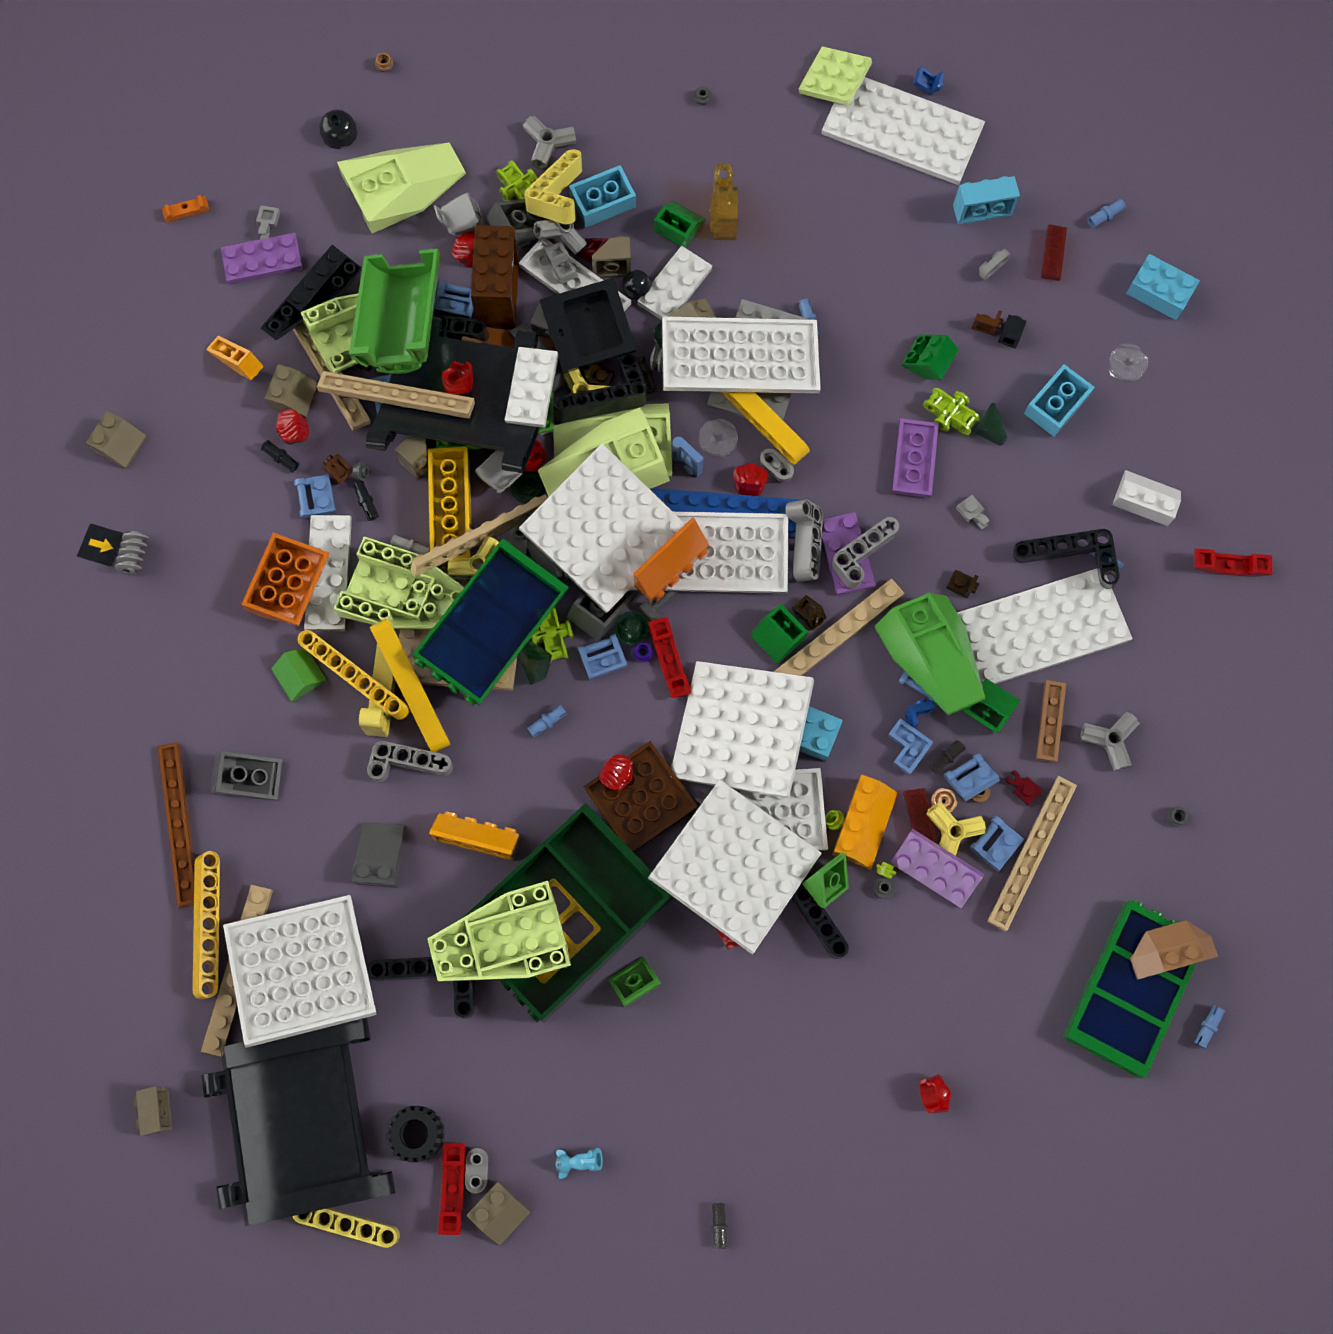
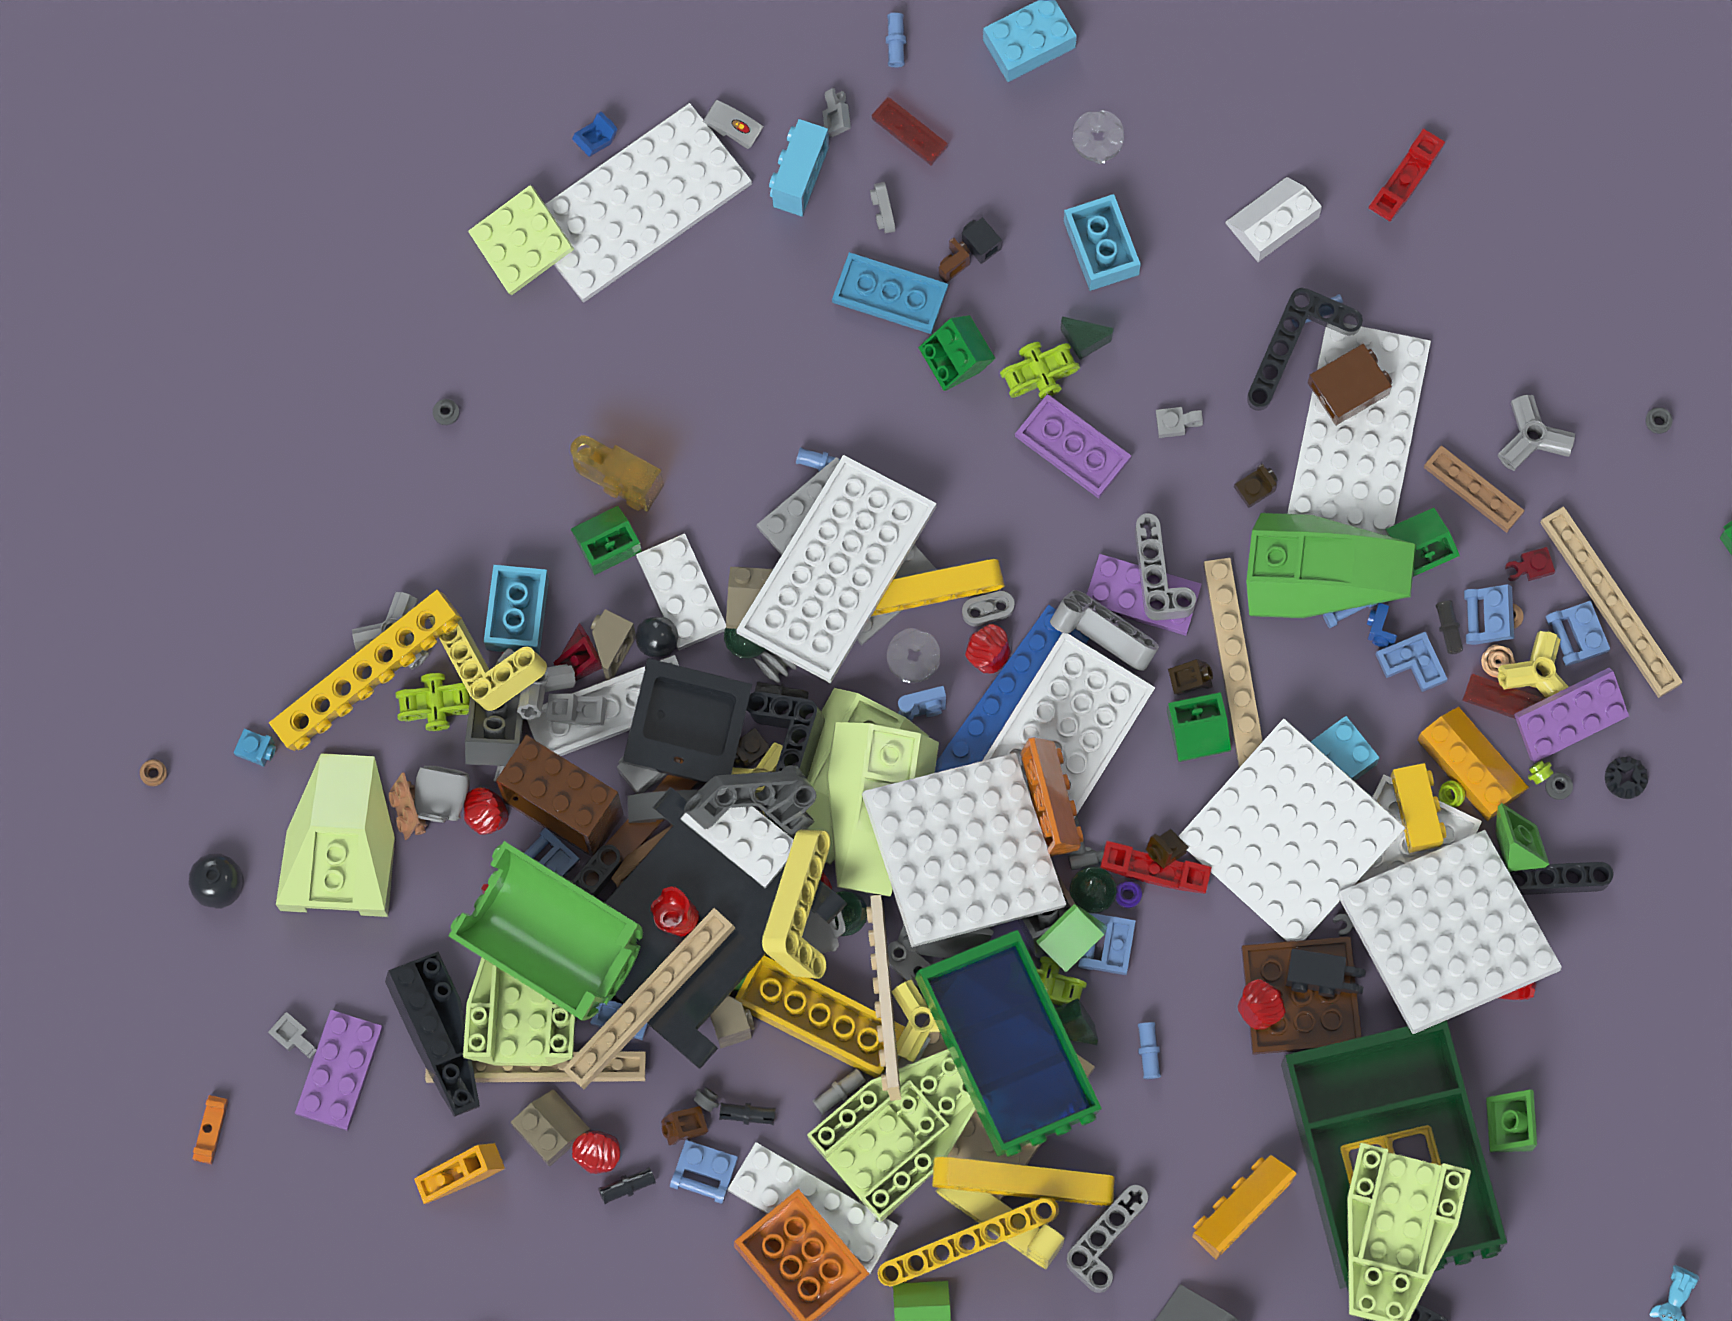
camera: 55 degrees left, 0 degrees up
(432, 106) = (255, 747): none -> dark azure bracket
(447, 196) = (402, 798): none -> nougat hinge
(500, 441) = (792, 906): none -> light yellow beam
(512, 133) = (287, 722): none -> yellow brick
(564, 396) = (783, 799): none -> dark grey connector
(588, 627) = (1071, 936): none -> slope
(659, 799) = (1321, 973): none -> black hinge
(686, 657) = (1166, 848): none -> dark brown bracket
(809, 801) = (1418, 807): none -> yellow brick
(911, 936) = (1629, 789): none -> black gear
(942, 298) = (890, 293): none -> dark azure plate
(988, 152) = (733, 123): none -> light grey slope
(1035, 205) = (836, 117): none -> light grey plate
(1068, 601) = (1350, 384): none -> reddish brown brick

